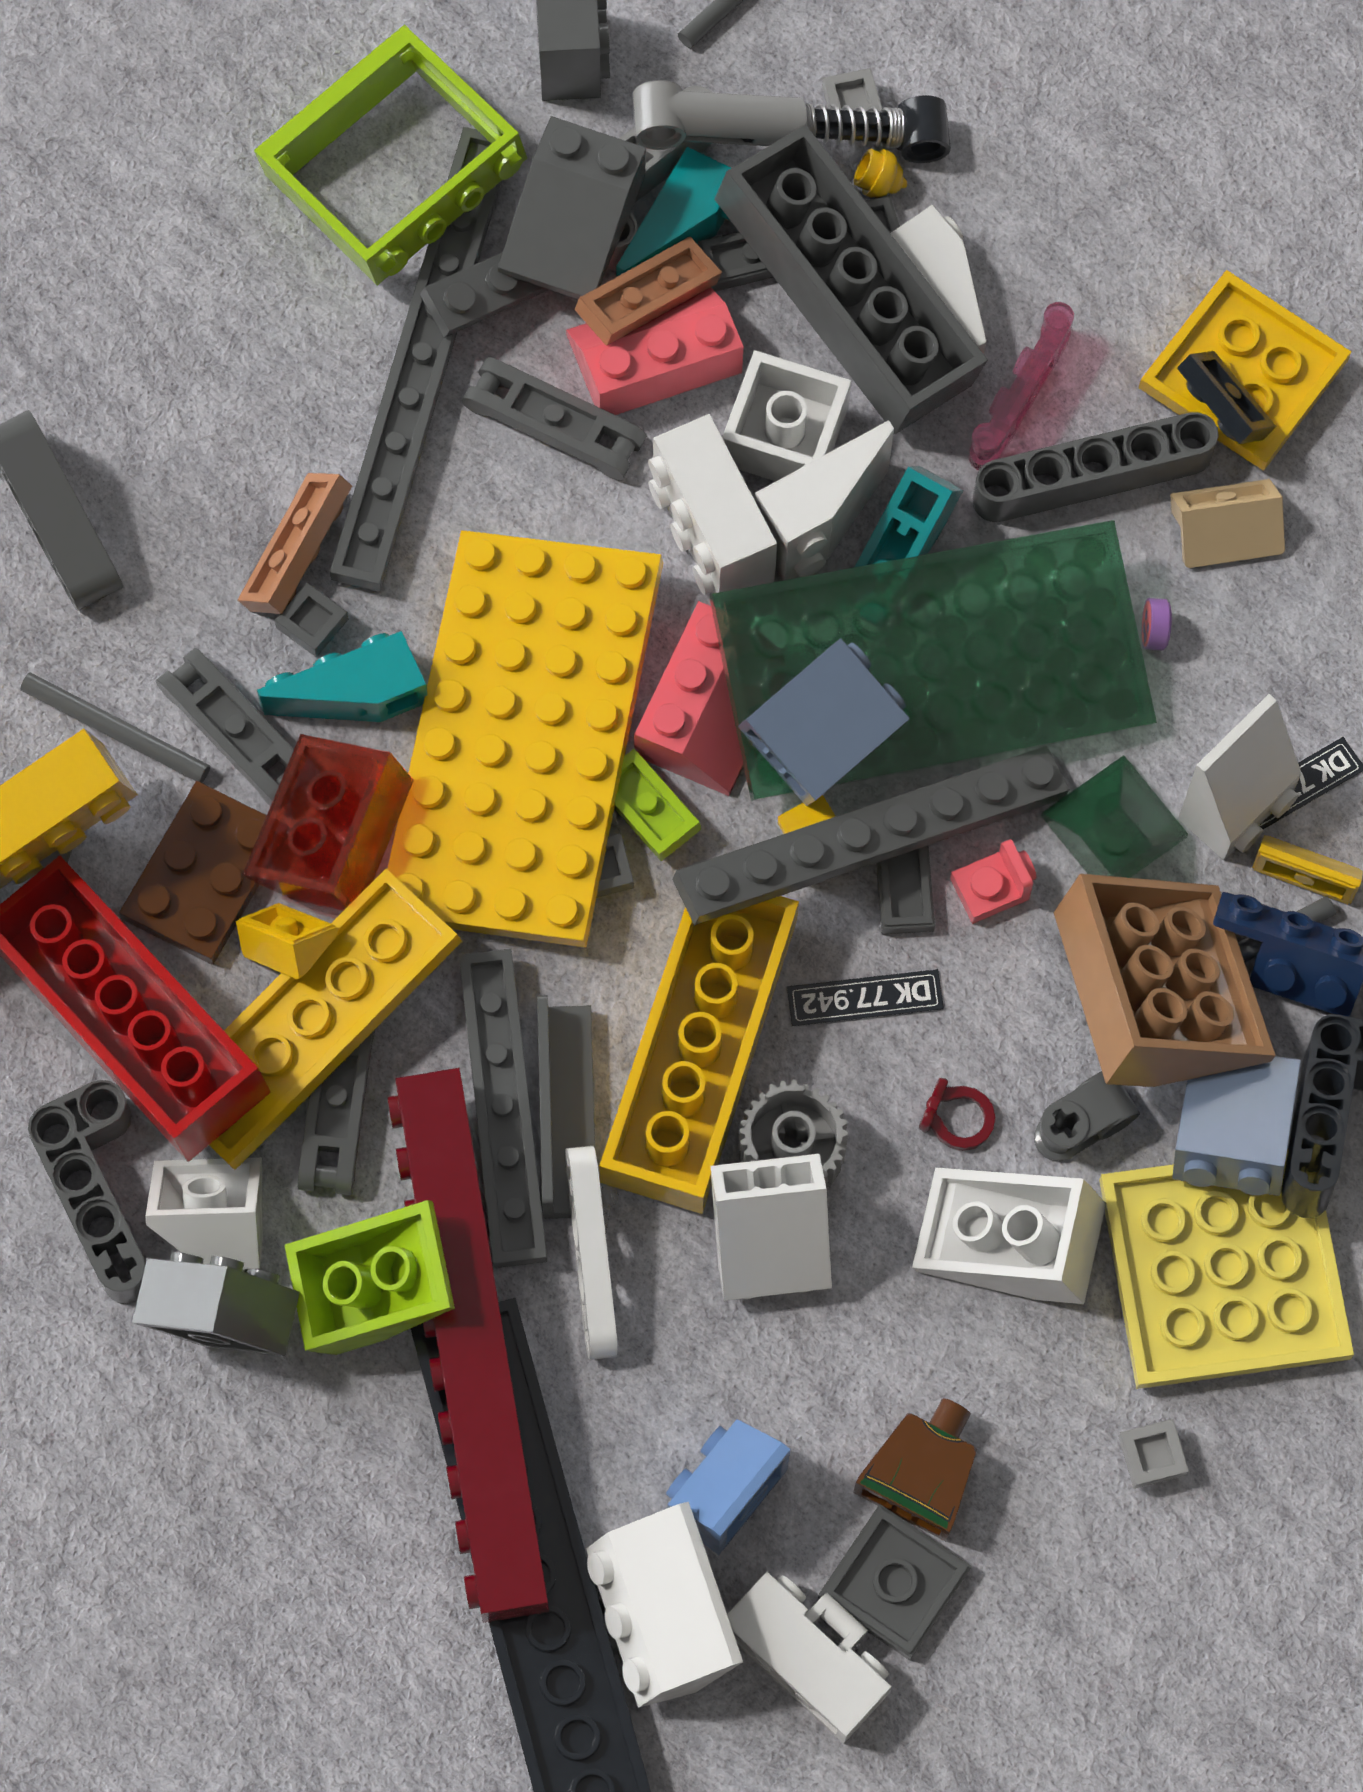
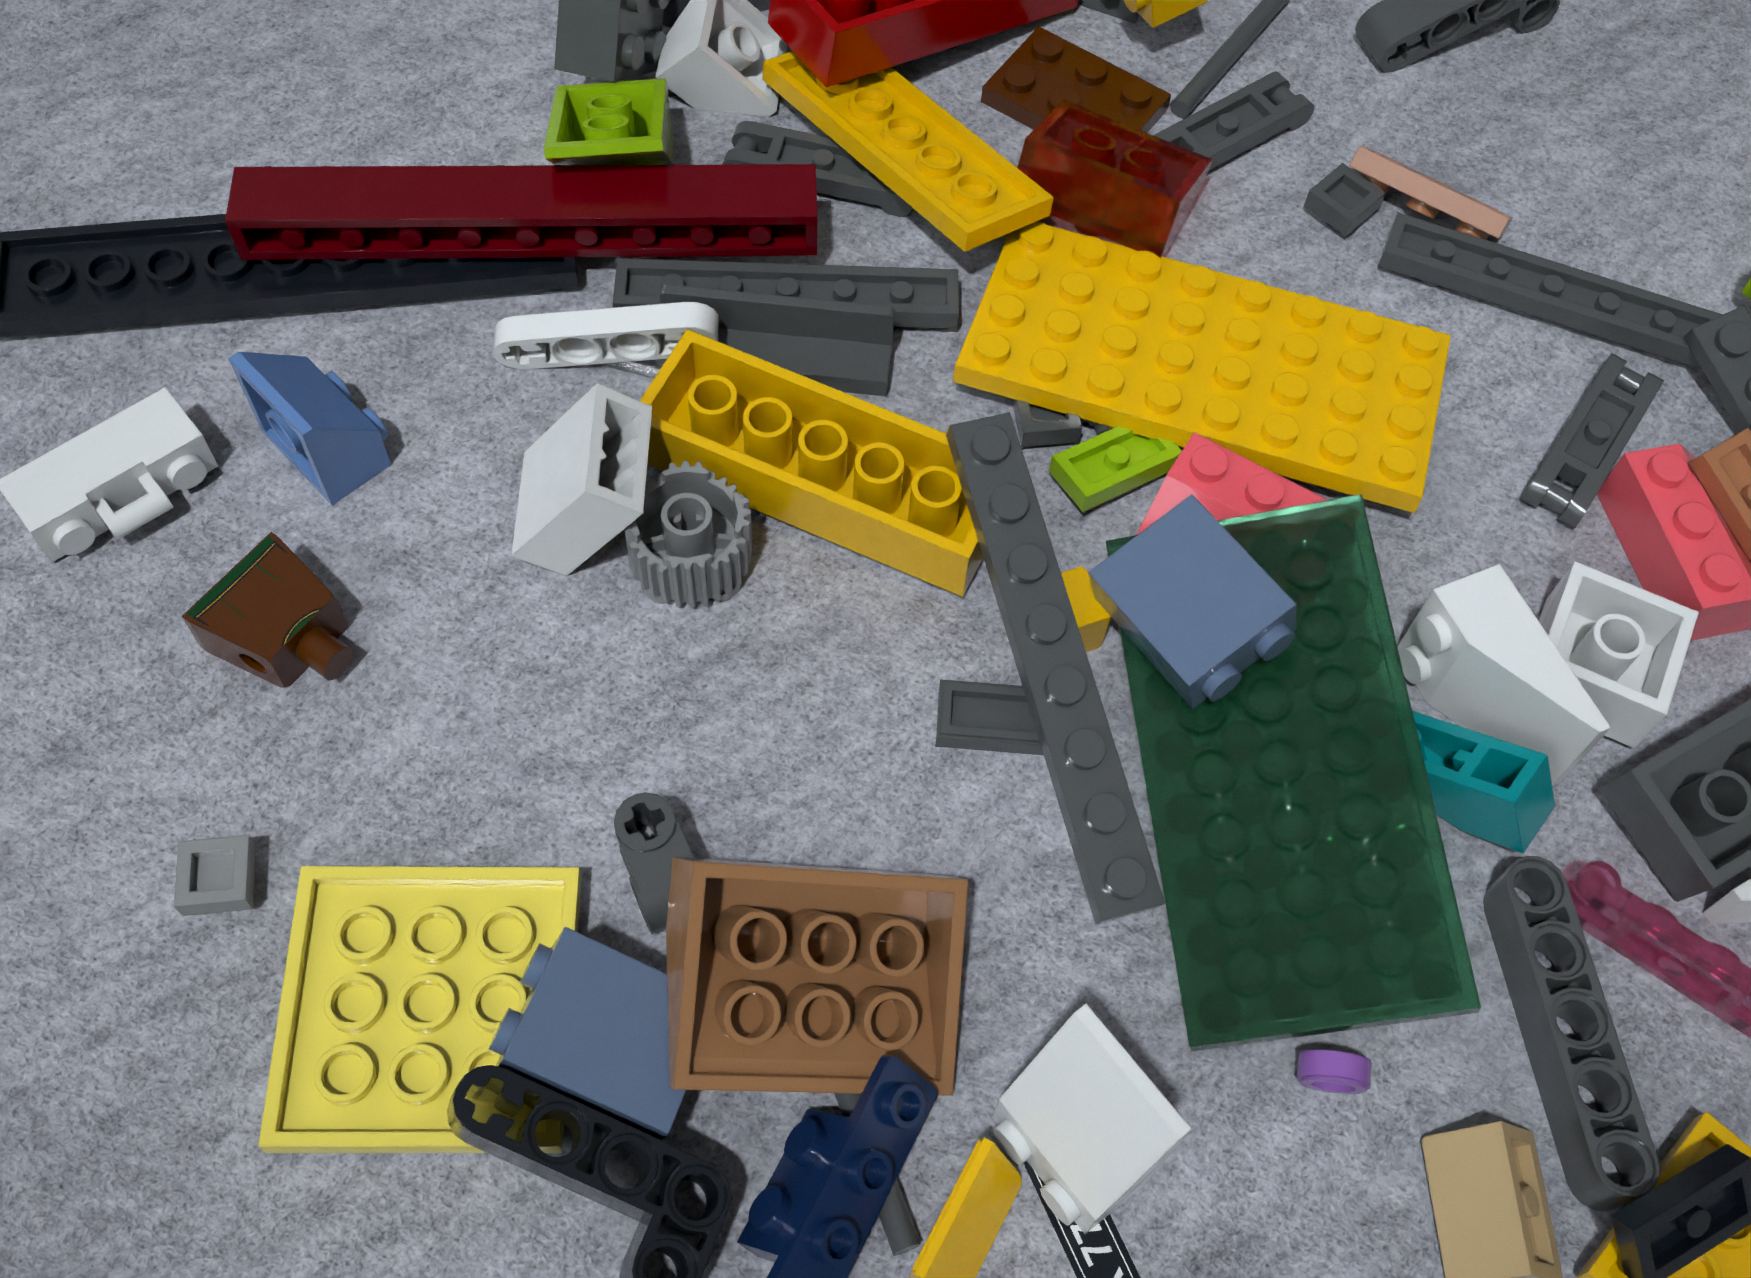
camera: 95 degrees right, 10 degrees down
(284, 939) = (989, 122): yellow slope -> none
(357, 686) = (1273, 230): teal slope -> none
(663, 1606) = (192, 337): white slope -> none
(711, 508) = (1526, 526): white brick -> none
(865, 997) = (861, 662): black sticker -> none
(896, 1581) = (157, 579): dark grey tile -> none
(945, 1094) = (697, 699): dark red piece -> none
(995, 882) = (986, 814): coral bracket -> none
(1011, 1233) = (525, 760): white slope -> none
(1114, 822) = (1043, 964): clear green slope -> none

